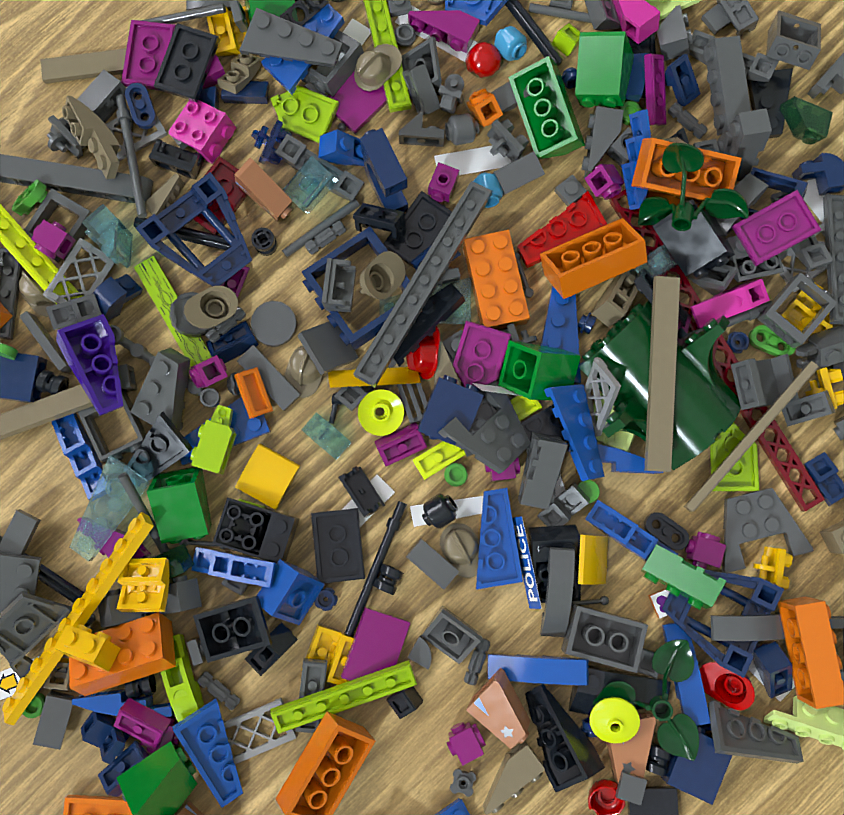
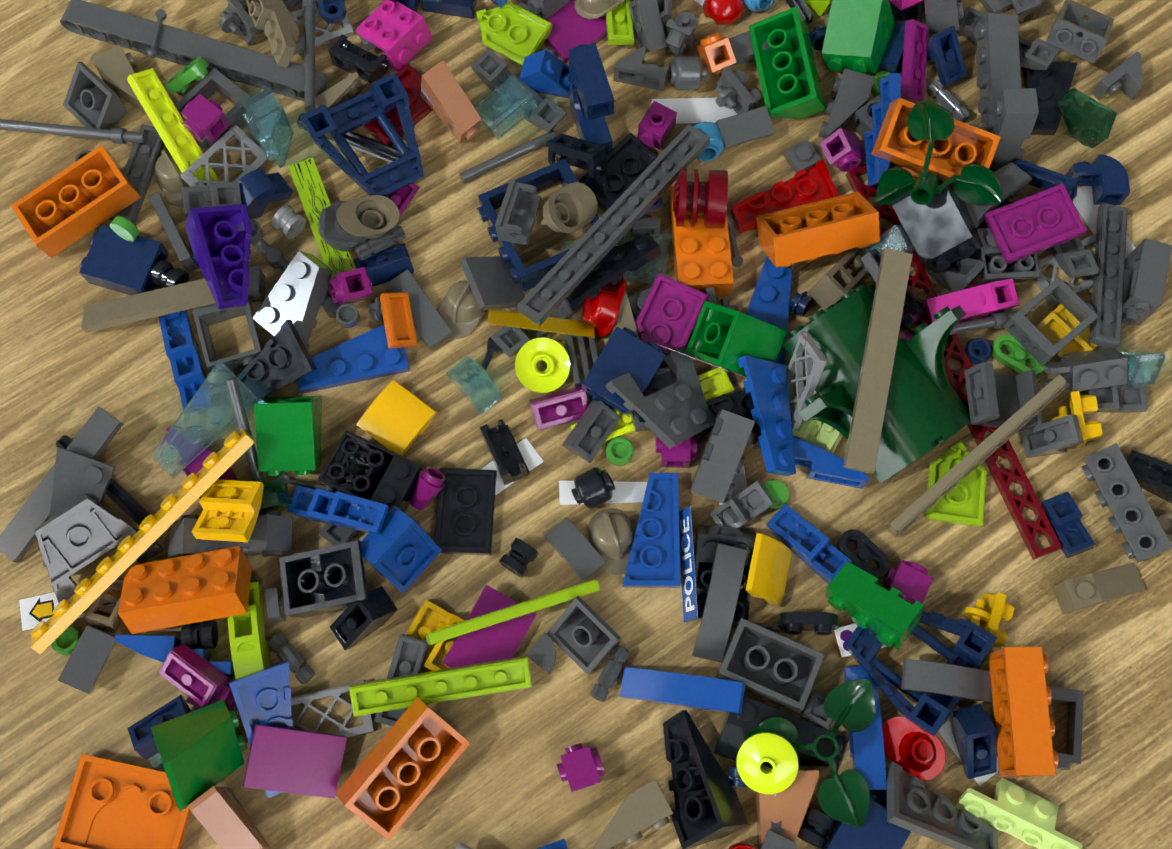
camera: 10 degrees right, 10 degrees down
(87, 647) = (149, 566): yellow brick -> none
(100, 732) = (145, 685): dark blue brick -> none
(144, 318) = (288, 222): none -> light grey wheel
(215, 442) = (343, 366): lime hinge -> none
(237, 777) = (294, 761): none -> magenta tile
(267, 245) = (445, 165): black wheel -> none
(273, 323) = (435, 251): dark grey tile -> none
(277, 134) = (459, 50): clear blue hips -> none
(304, 531) = (428, 485): none -> magenta cone
(325, 237) = (511, 166): dark grey axle -> none
(326, 605) = (440, 578): dark blue plate -> none
(390, 629) = (511, 612): none -> lime tile
(393, 525) = (535, 497): black bar -> none
(405, 701) = (514, 708): black slope -> none
(430, 462) = (591, 430): none -> dark grey slope
(468, 777) = (577, 814): dark grey plate -> none
(494, 252) = (701, 198): none -> dark red wheel
(500, 710) = (630, 733): nougat slope -> none
(619, 598) = (819, 622): none -> black plate
(757, 517) = (977, 556): dark grey wing -> none

